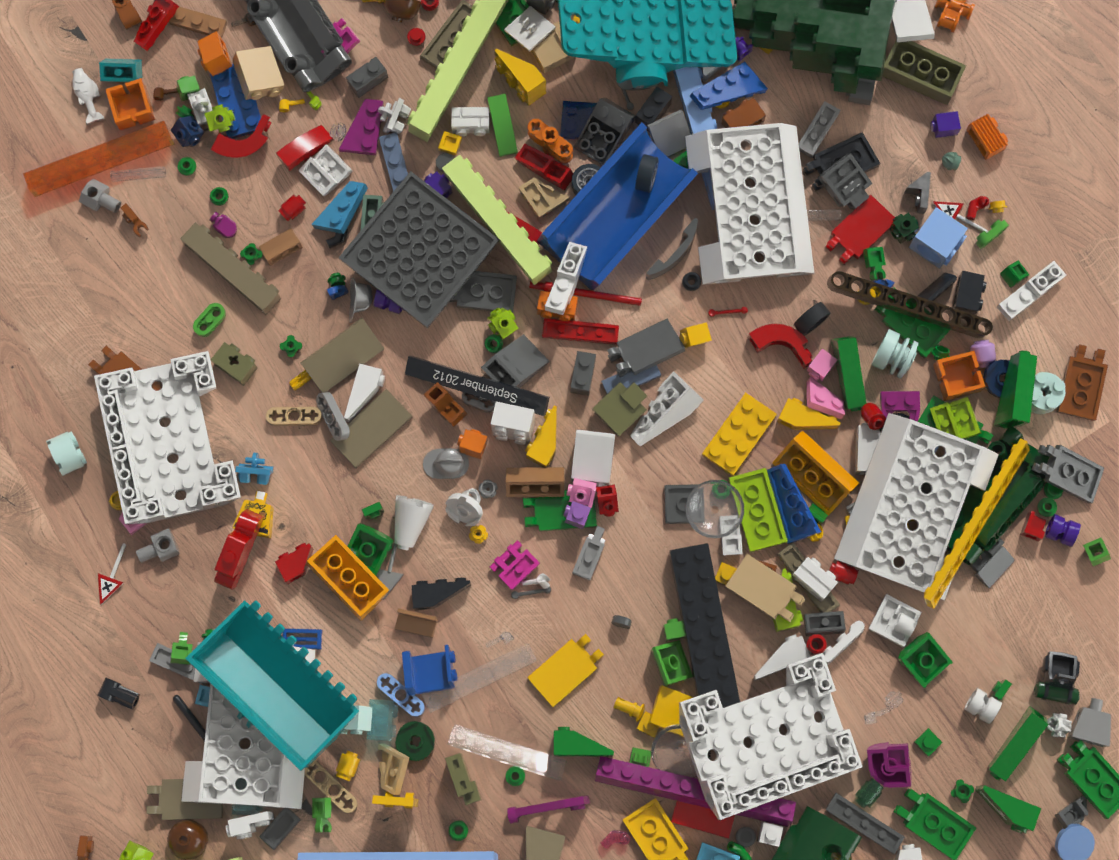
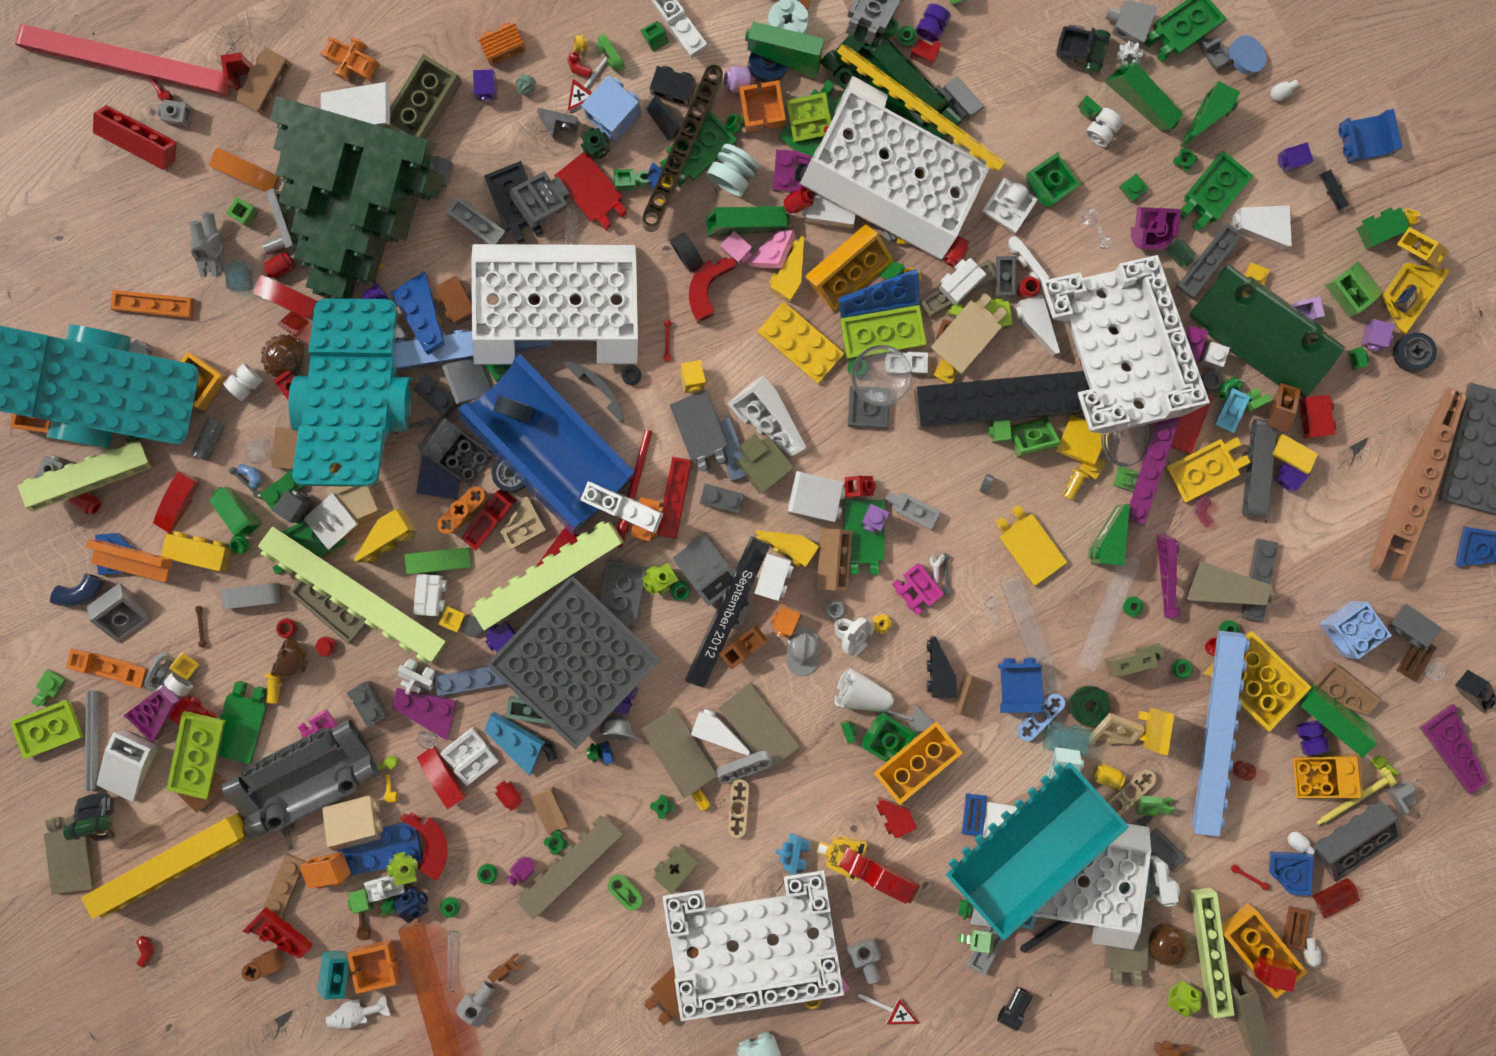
camera: 85 degrees left, 10 degrees up
(581, 486) = (851, 511): bright pink brick -> none

